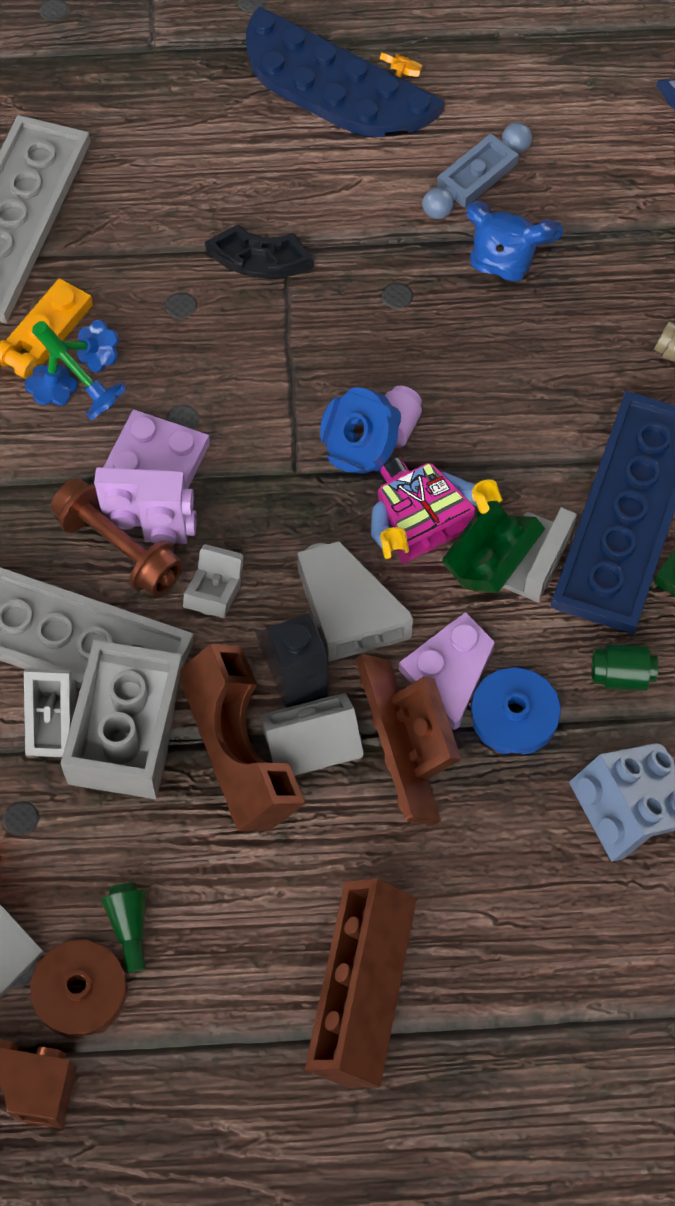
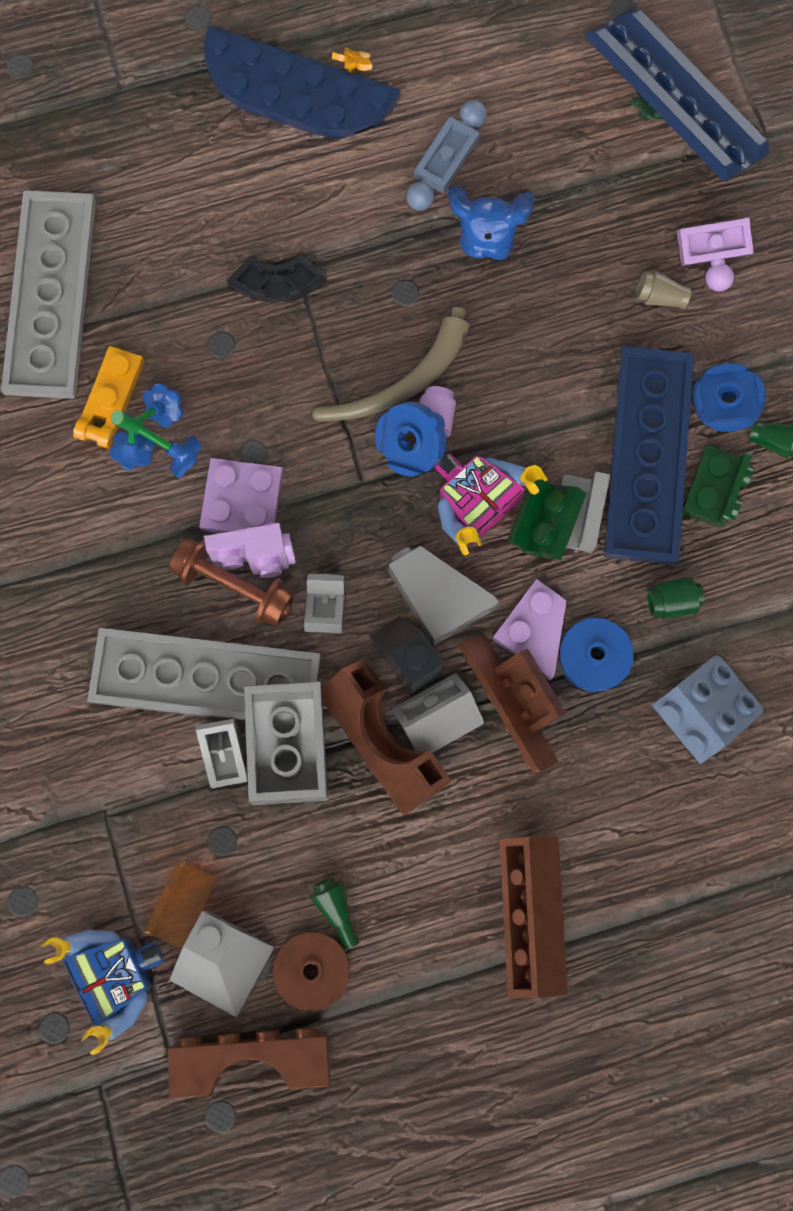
camera: 15 degrees left, 15 degrees up
(414, 364) = (437, 360): none -> dark tan animal

